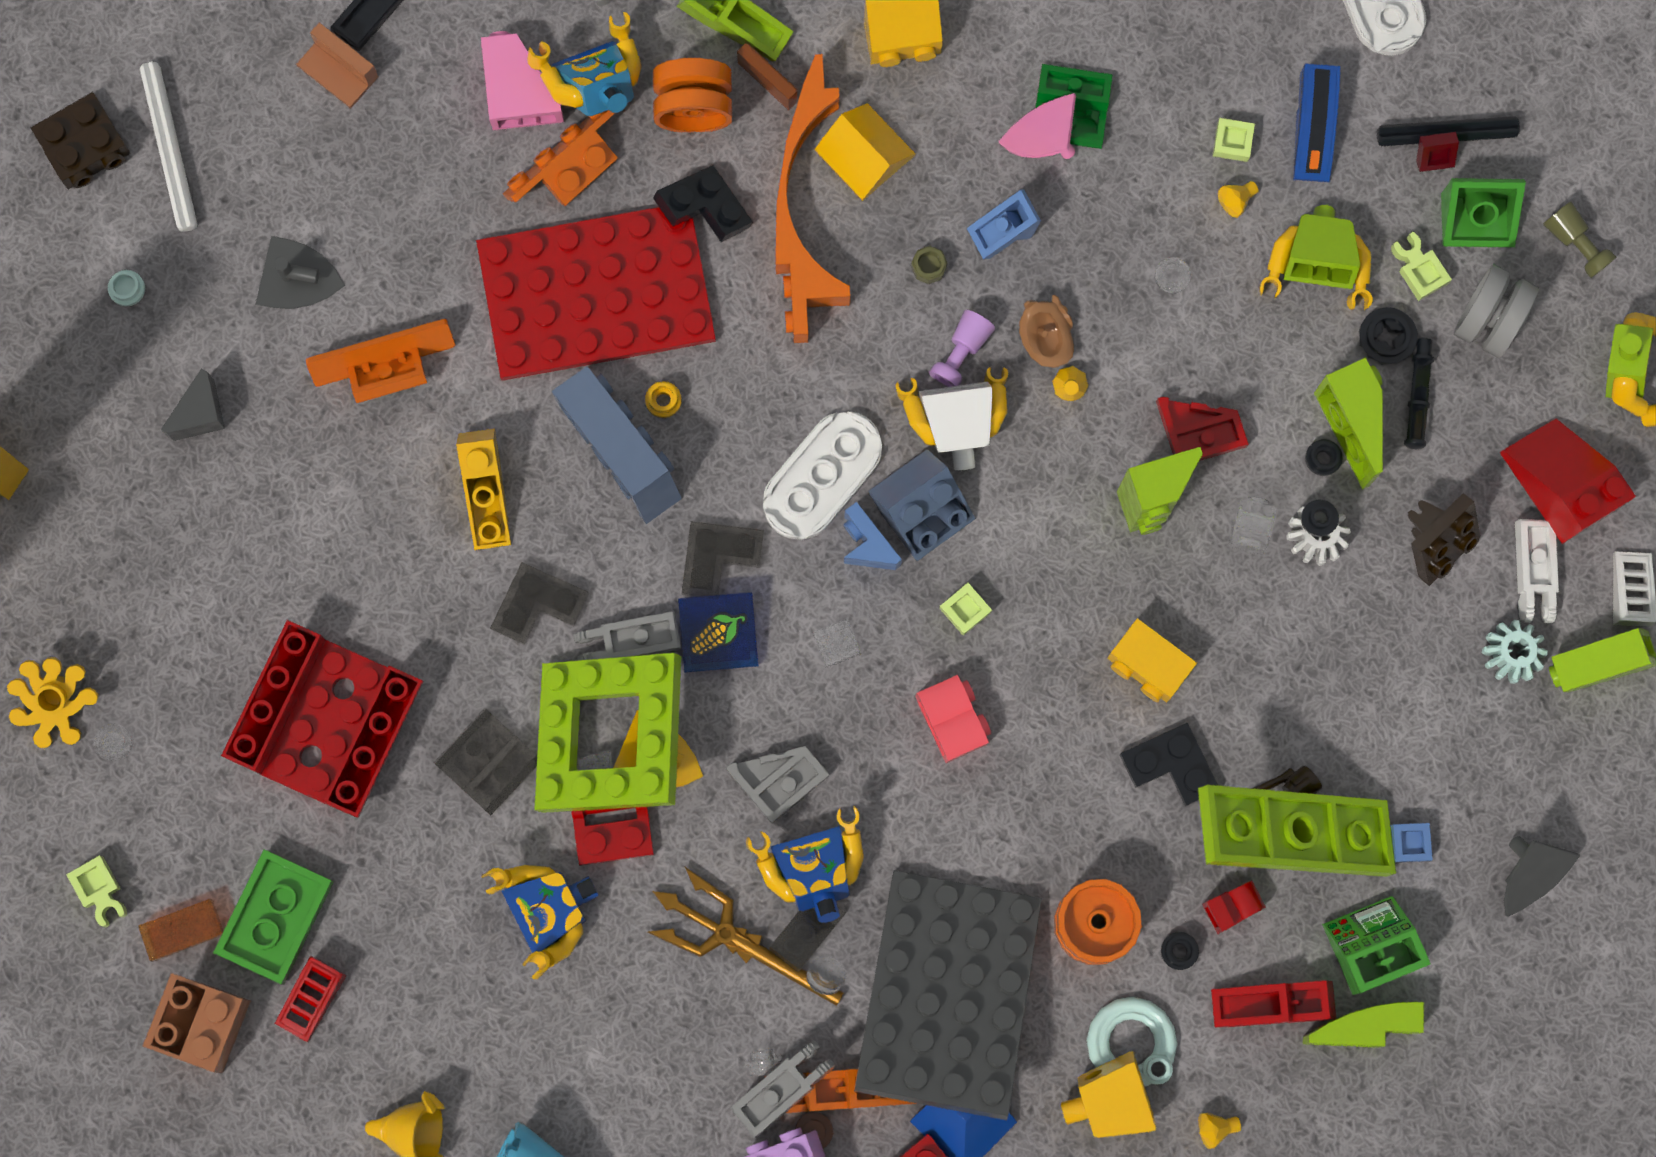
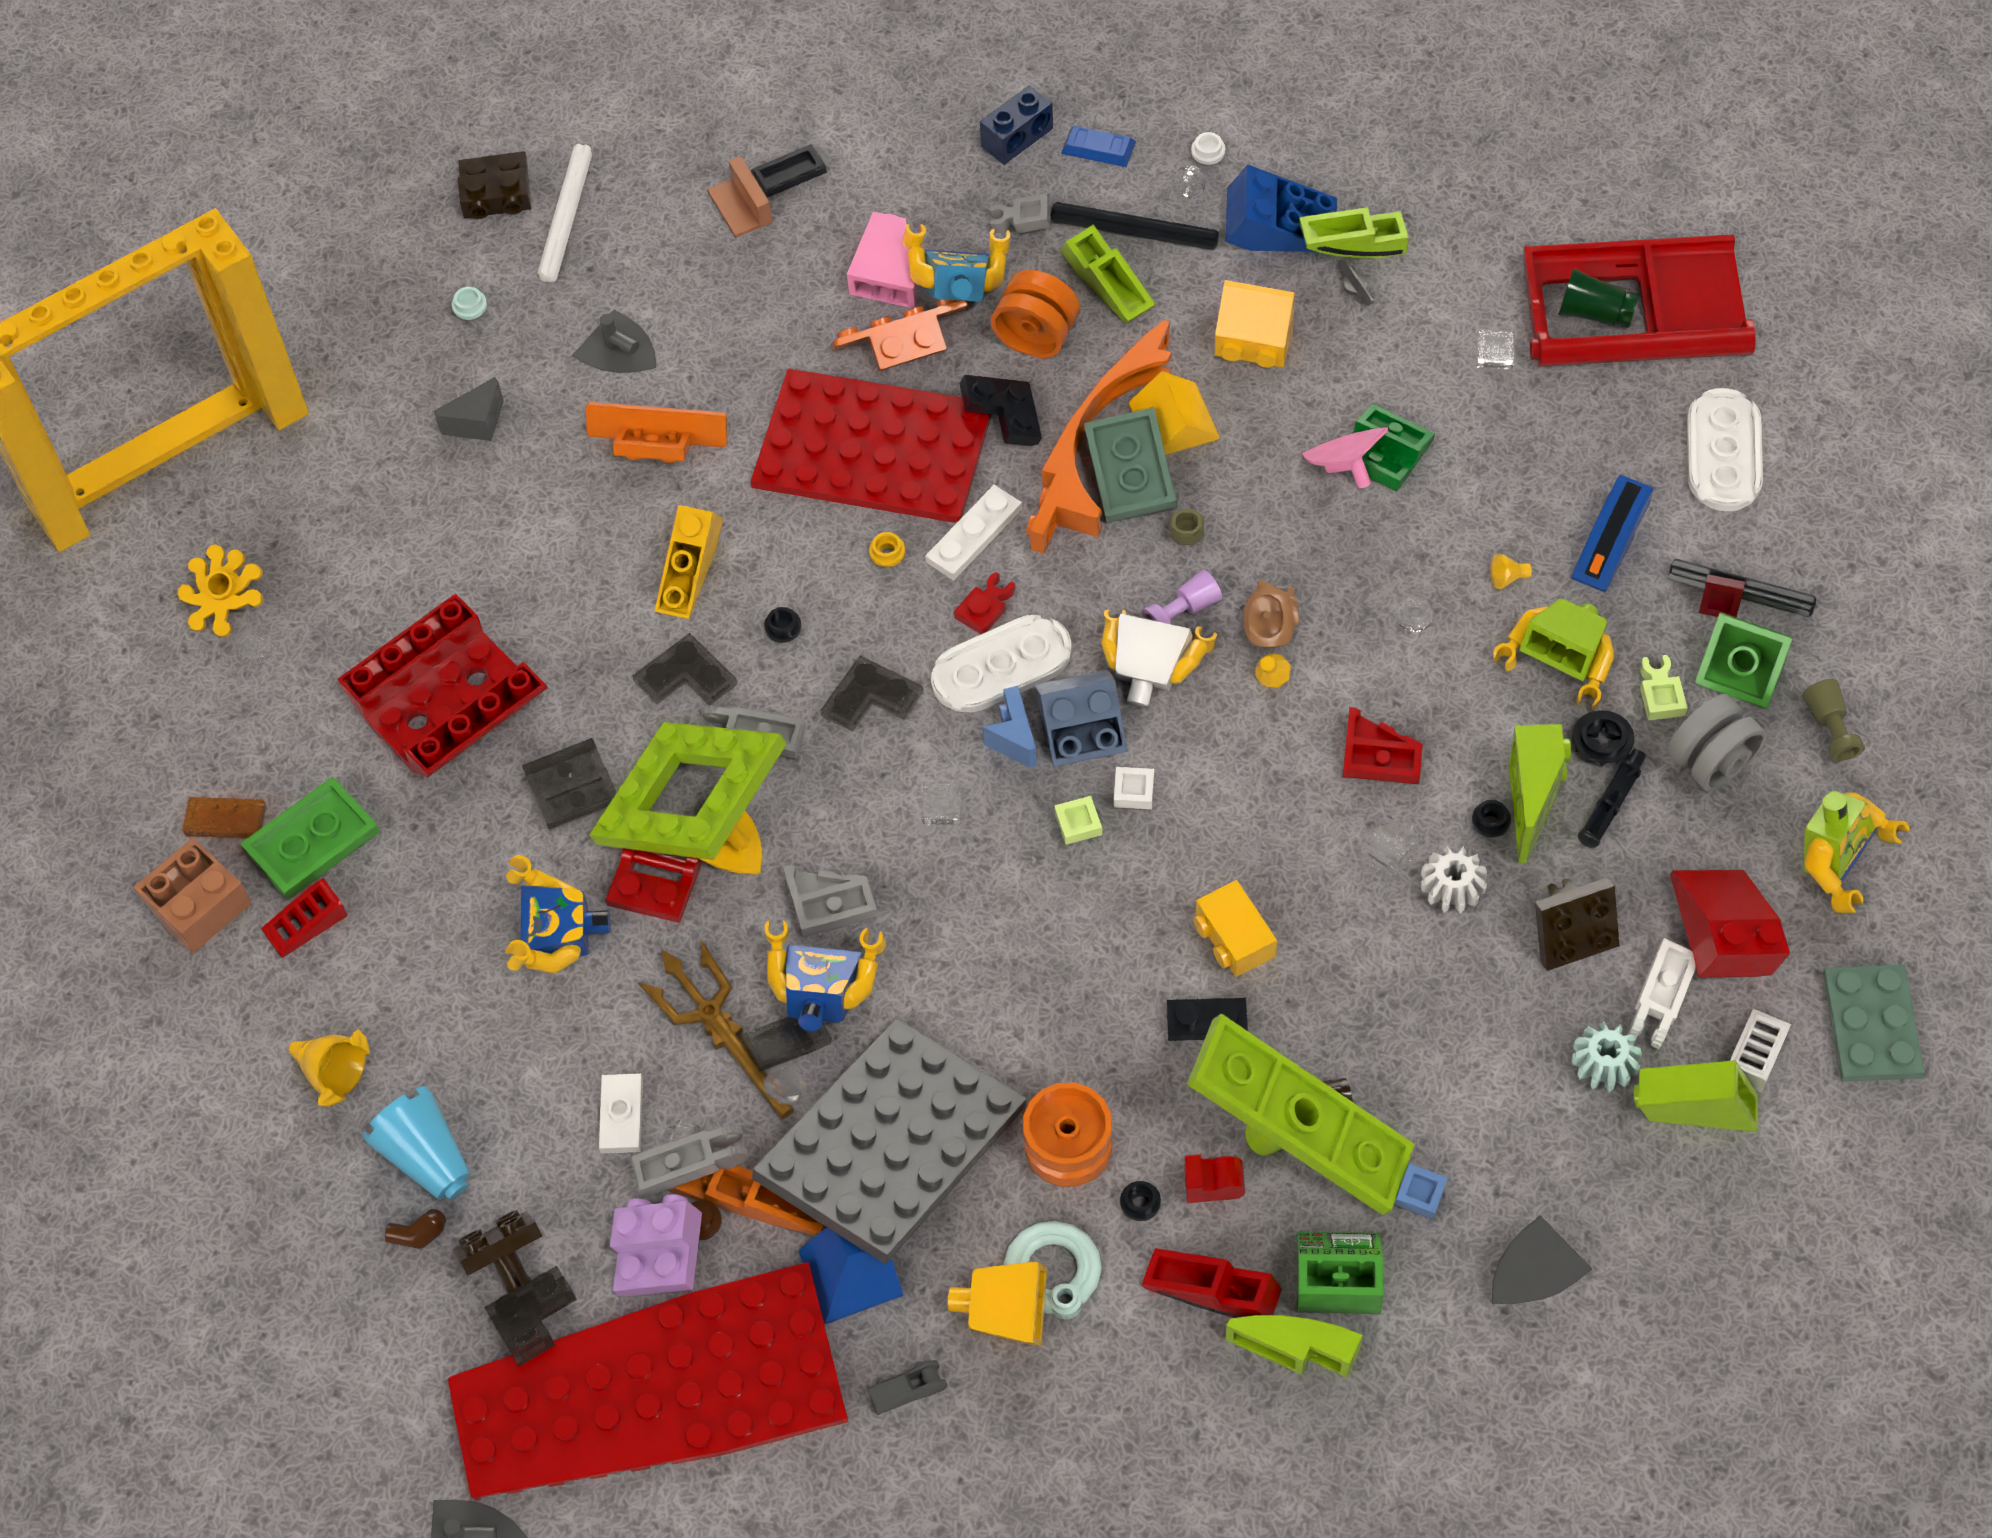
camera: 30 degrees right, 20 degrees down
(95, 885) = (171, 753): yellowish green plate -> none
(603, 518) = (782, 625): none -> black plate
(618, 443) = (827, 567): sand blue wedge -> none
(693, 1061) = (621, 1113): none -> white plate
(718, 632) = (836, 753): clear blue tile -> none
(734, 347) = (973, 532): none -> white plate
(767, 76) = (1111, 325): dark orange tile -> none
(778, 424) = (985, 607): none -> red plate
(850, 221) = (1130, 465): none -> sand green plate
(952, 718) = (1018, 907): coral brick -> none
(1000, 556) = (1133, 788): none -> white plate
(1005, 224) = (1274, 512): medium blue slope -> none
(1154, 488) = (1310, 769): lime slope -> none
(1215, 1128) = (1097, 1379): yellow rock -> none
(1233, 139) = (1526, 523): yellowish green plate -> none
(1312, 526) = (1452, 863): black plate -> none

